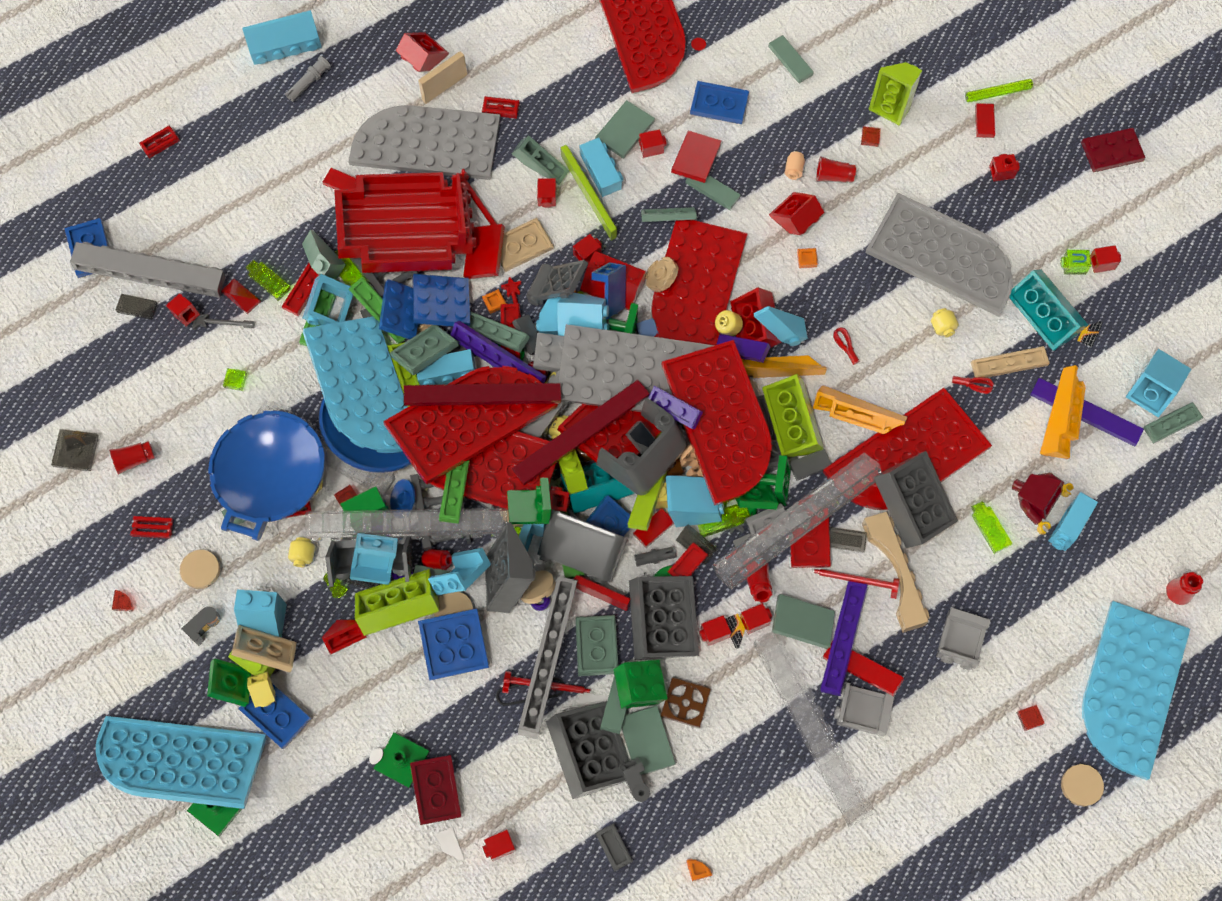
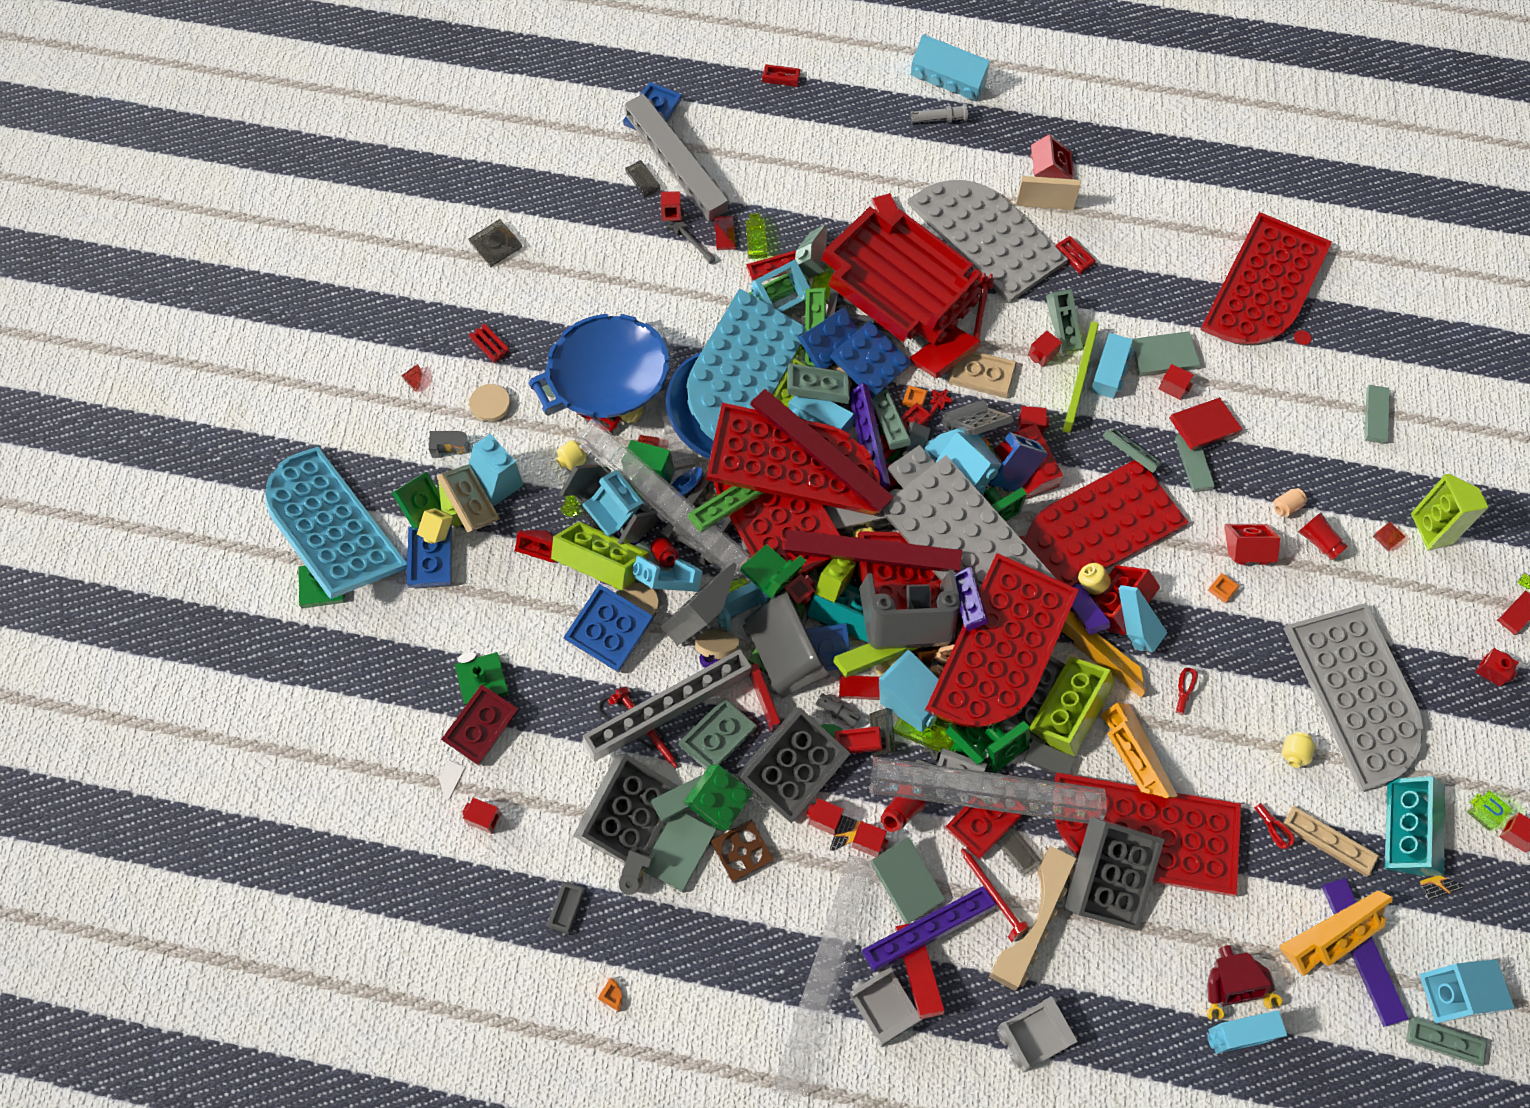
camera: 45 degrees right, 5 degrees down
(131, 456) = (526, 279): red plant -> none
(234, 379) = (657, 288): clear neon green plate -> none
(647, 328) = (1019, 523): medium blue slope -> none
(661, 274) = (1075, 491): tan tile -> none
(719, 102) = (1272, 397): blue plate -> none
(990, 527) = (1163, 965): clear neon green hinge -> none

